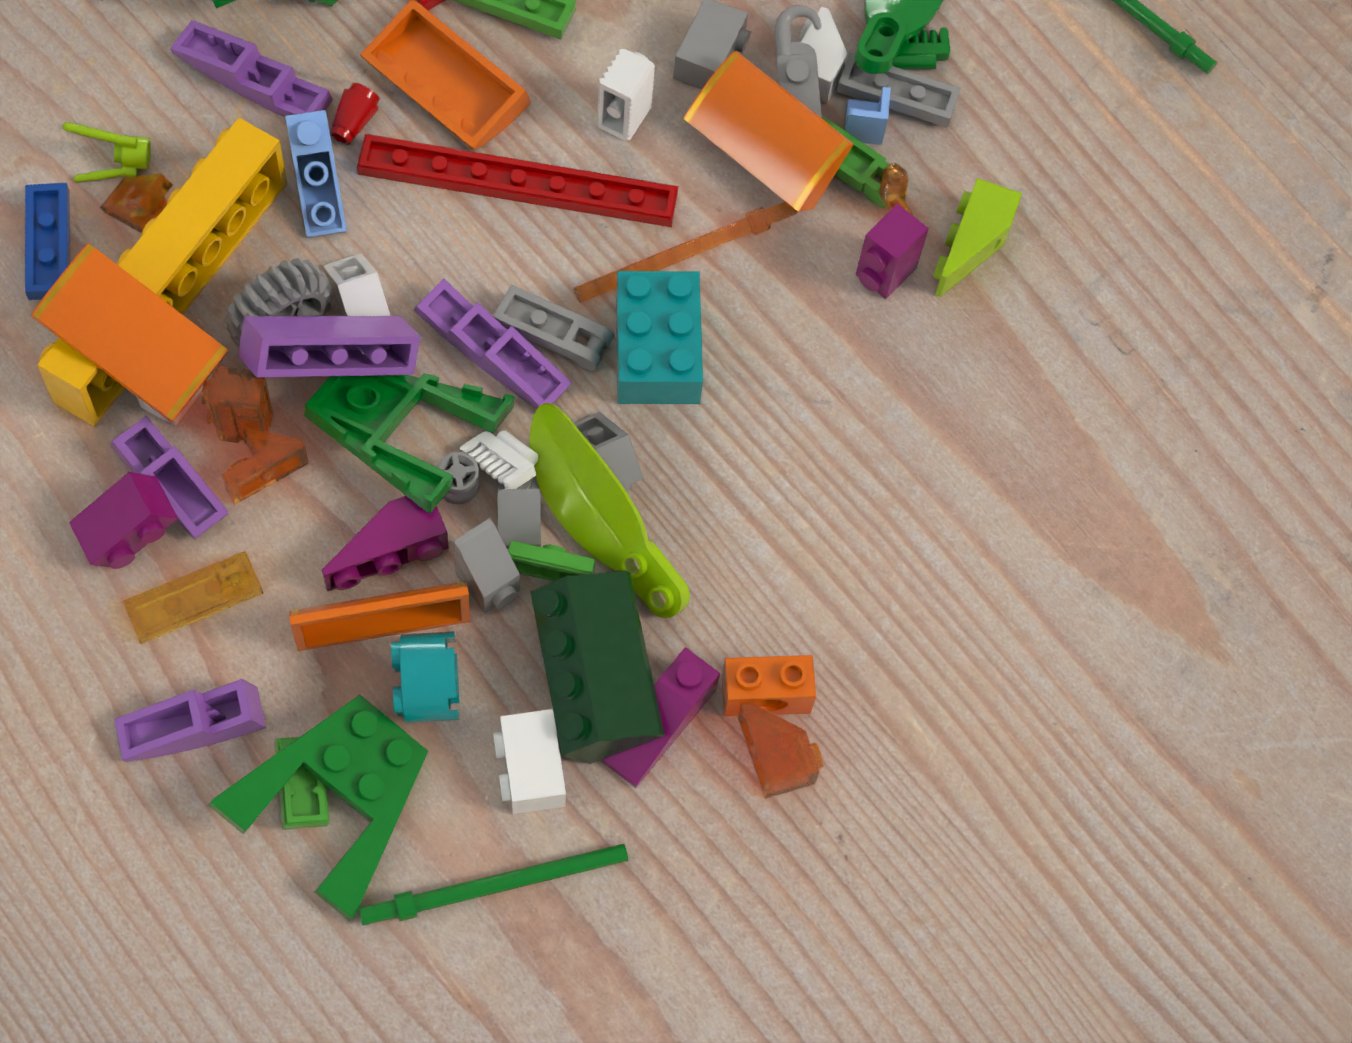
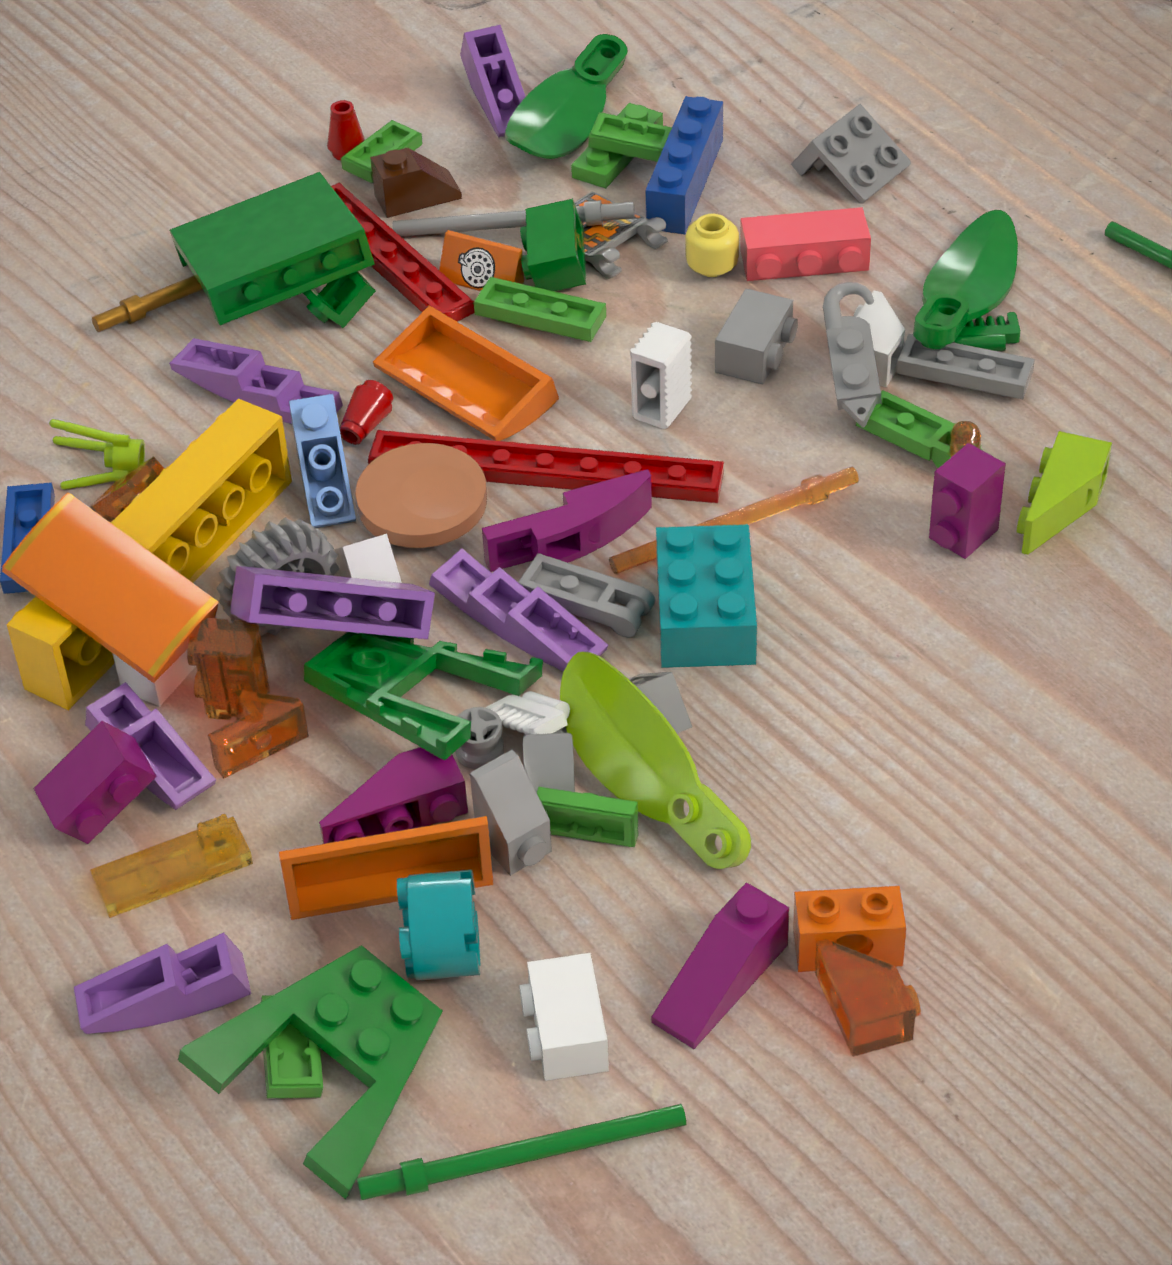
camera: 10 degrees right, 20 degrees down
(406, 214) = (421, 495): none -> nougat piece
(556, 248) = (583, 524): none -> magenta slope
(596, 665) = (641, 909): dark green slope -> none
(768, 132) = (822, 400): orange slope -> none
(868, 119) = (934, 391): light blue panel -> none

